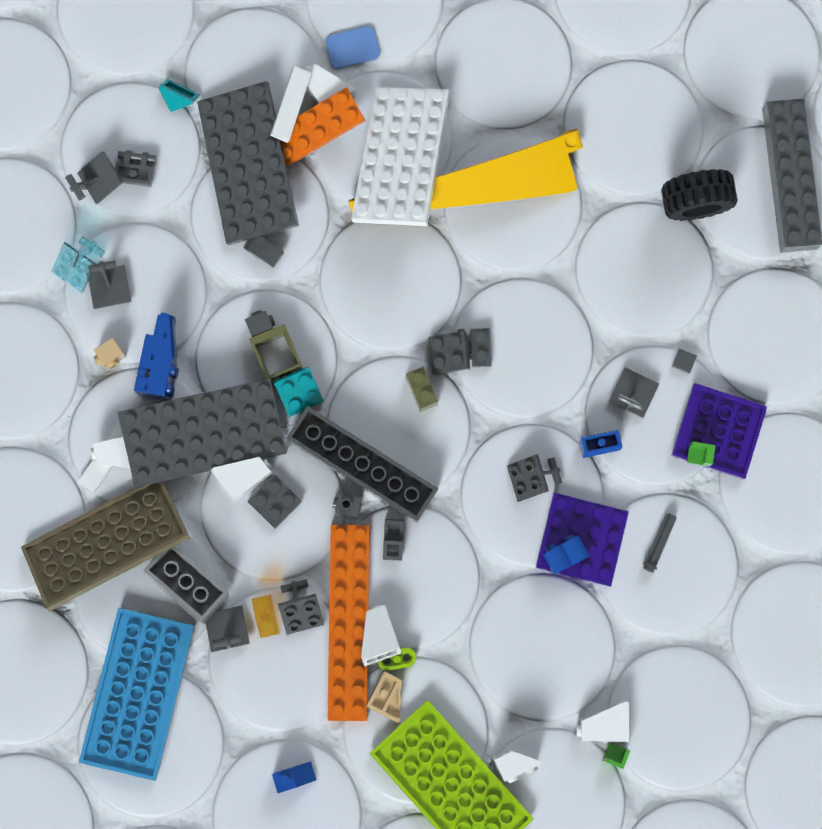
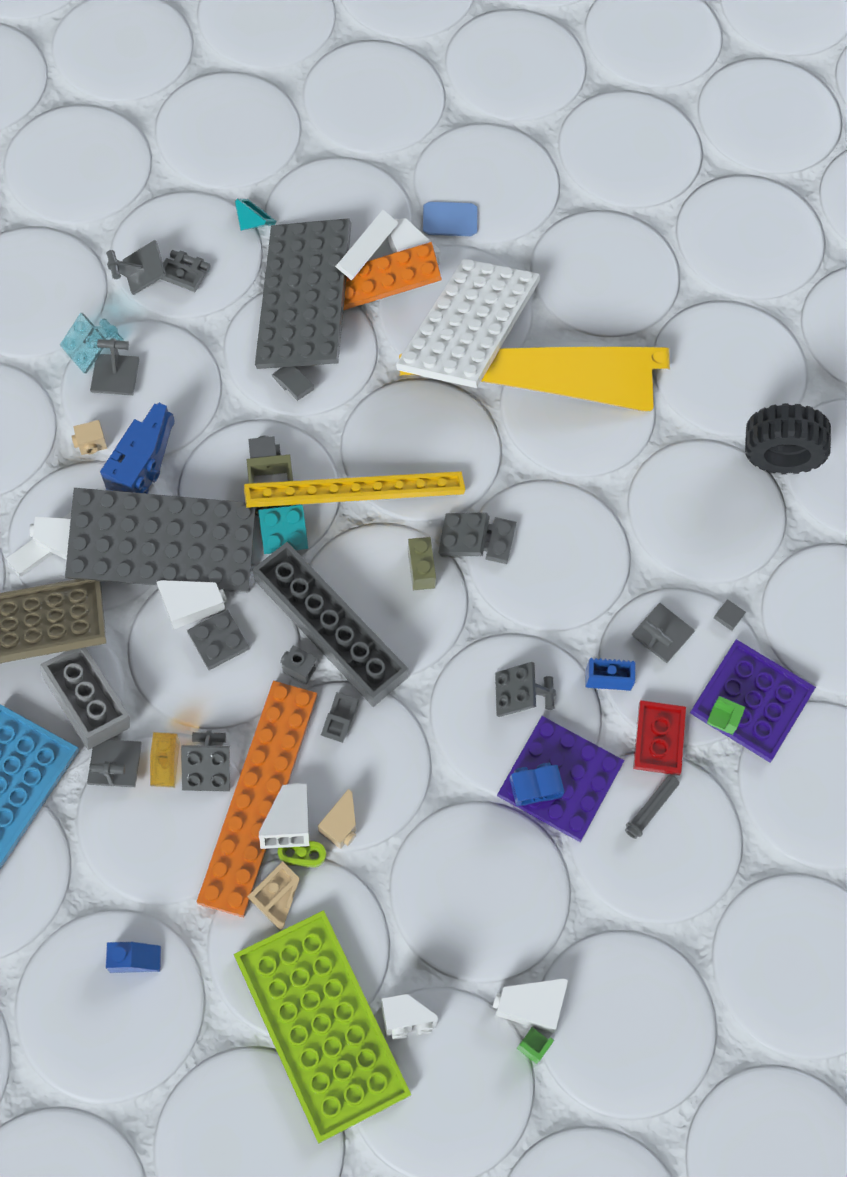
camera: 15 degrees right, 15 degrees down
(347, 340) = (353, 489): none -> yellow plate
(420, 626) = (340, 823): none -> tan slope
(652, 484) = (659, 738): none -> red plate

